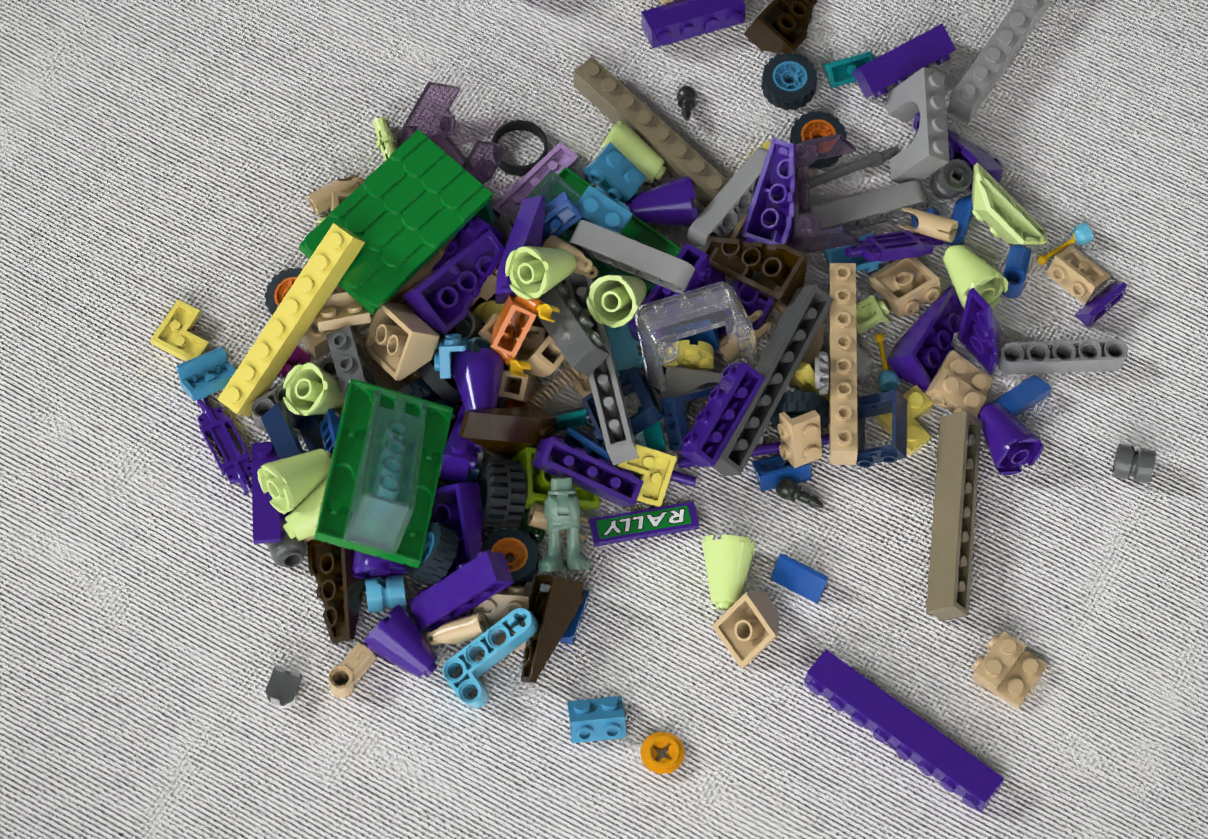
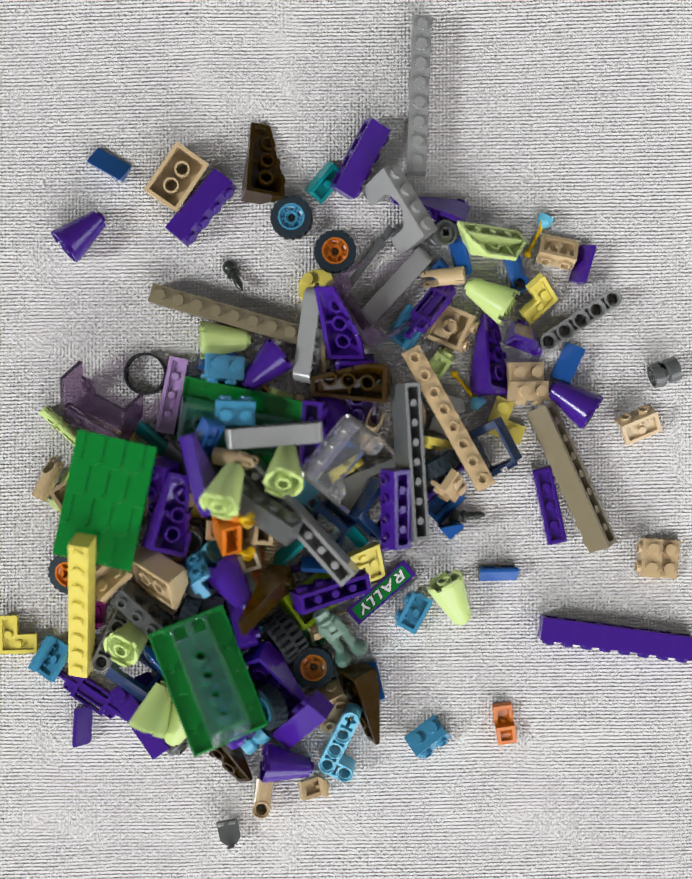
camera: 30 degrees left, 25 degrees up
(190, 471) = (82, 725): none -> dark purple slope
(419, 694) = (313, 787): none -> tan bracket
(459, 630) = (315, 737): tan piece -> none
(661, 741) = (485, 742): light orange gear -> none
(668, 561) = (413, 611): none -> dark azure bracket
(702, 756) = (504, 723): none -> orange slope
(748, 626) = (487, 625): tan slope -> none
(772, 487) = (451, 529): none -> blue slope
(822, 373) = (442, 440): light grey gear -> none
(907, 540) = (549, 505): none -> dark purple tile
(1031, 310) = (542, 299): none -> light yellow plate
(1070, 508) = (639, 424): none -> tan bracket

